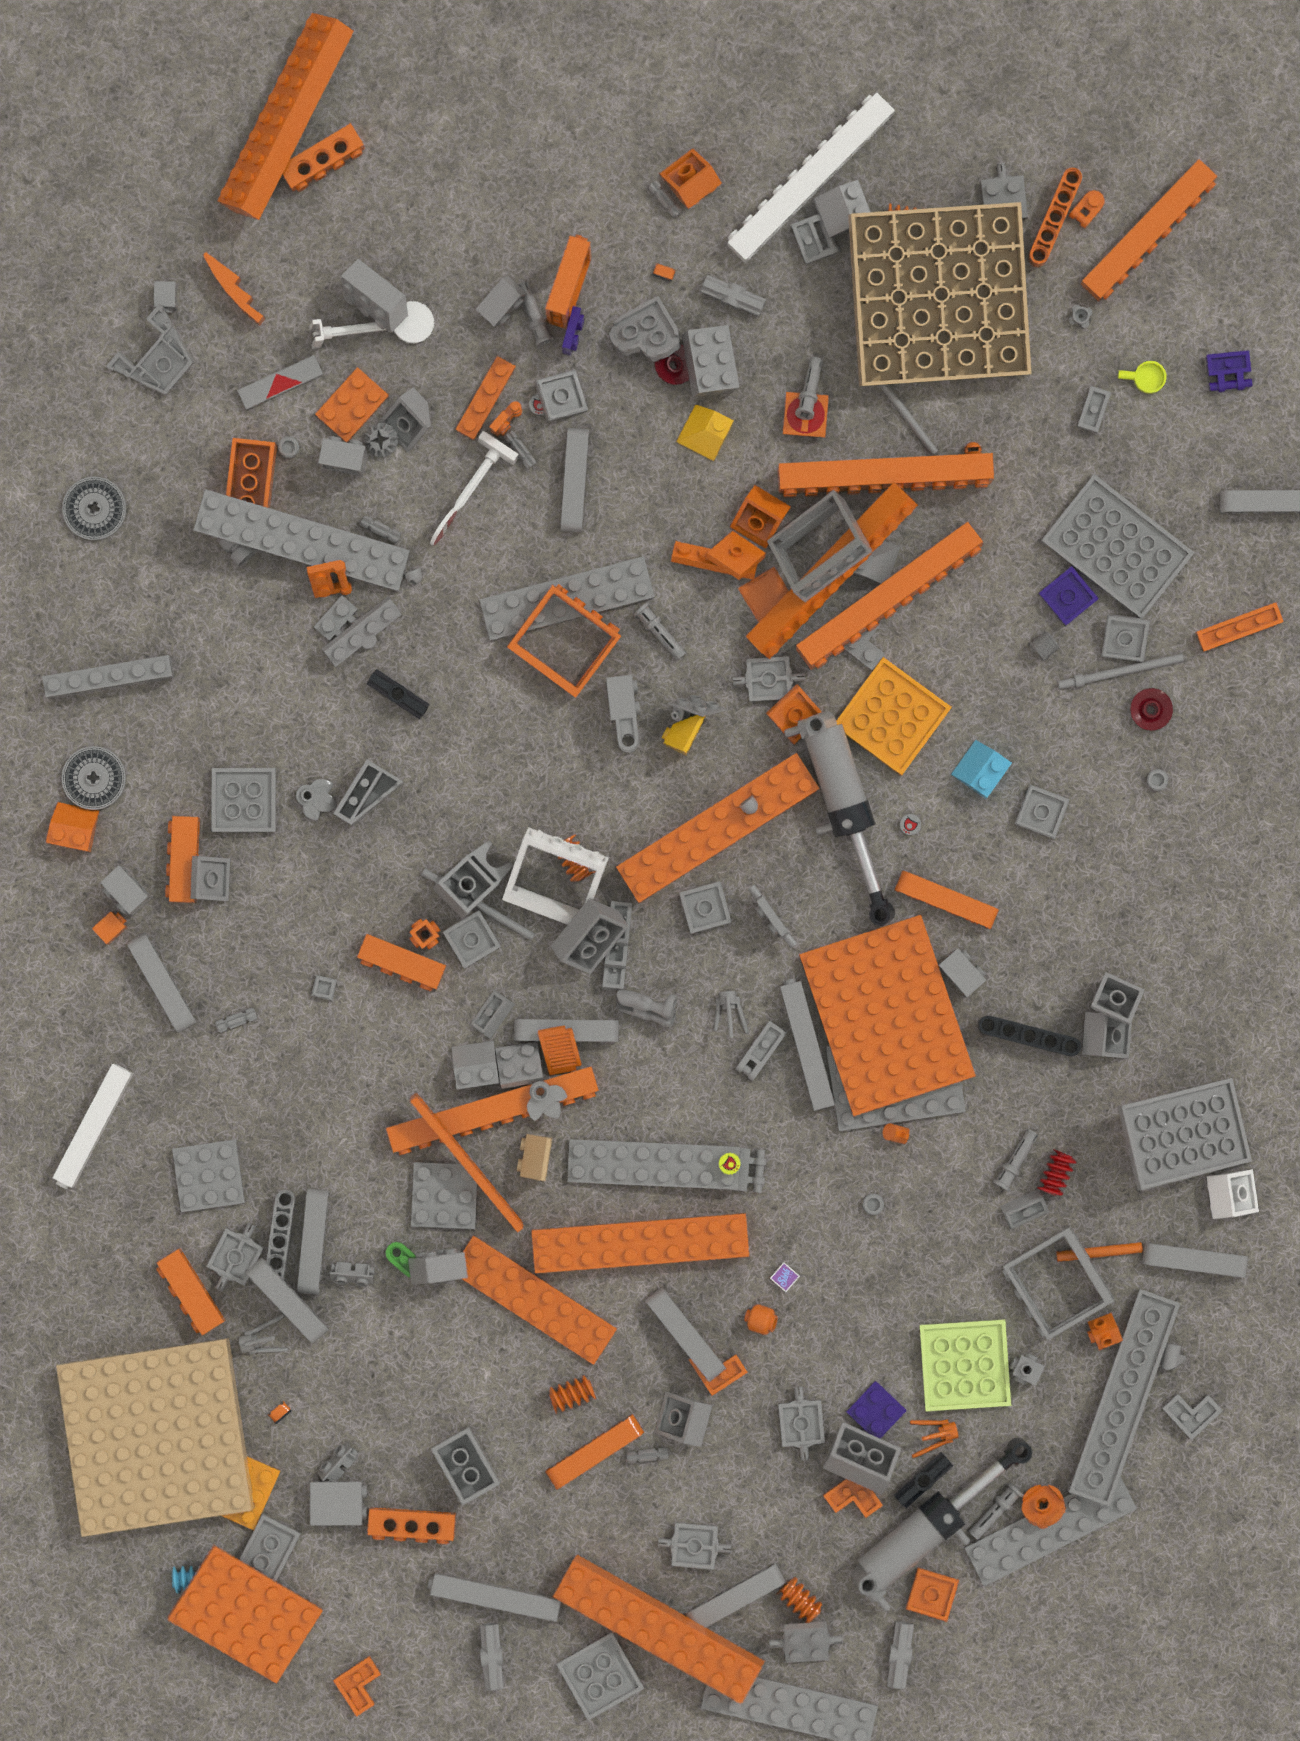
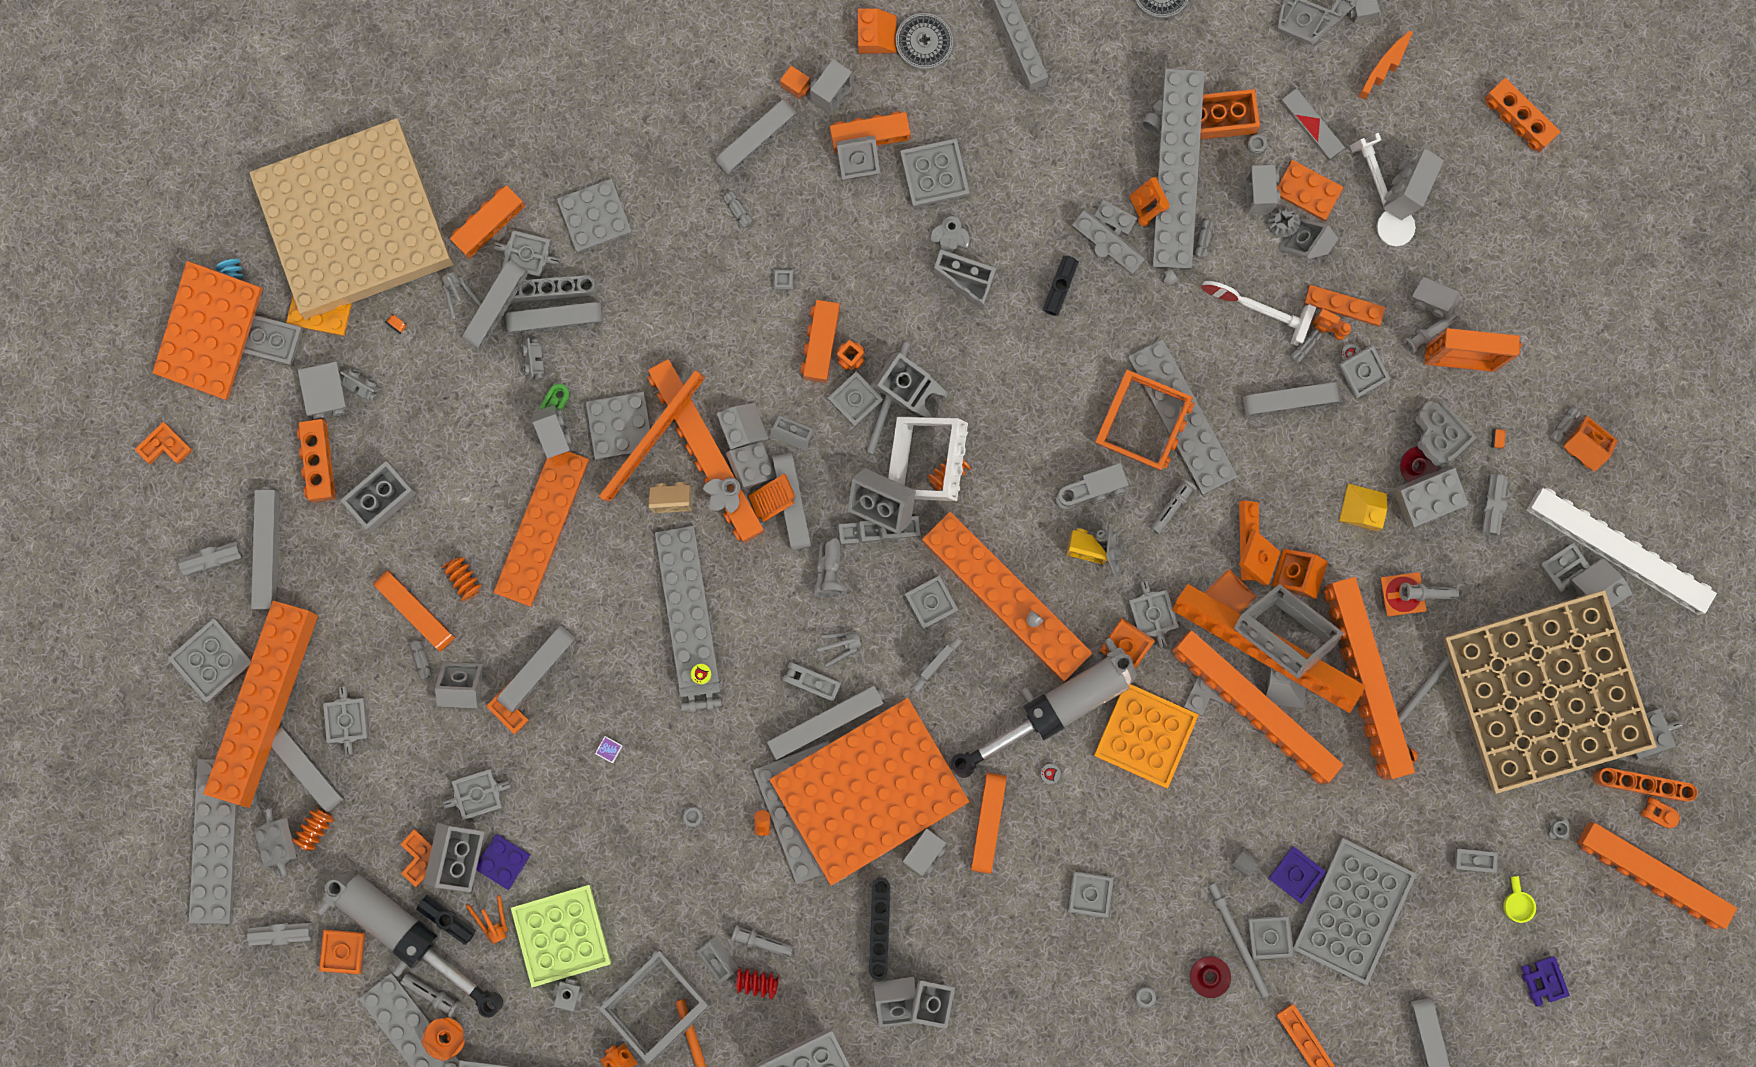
camera: 75 degrees right, 5 degrees down
(92, 1126) = (616, 105): white brick -> none
(285, 115) = (1553, 73): orange brick -> none
(571, 338) = (1429, 366): dark purple plate -> none
(640, 1243) = (612, 610): orange brick -> none
(761, 1319) = (565, 736): orange head -> none
(981, 768) = (1117, 828): medium azure slope -> none

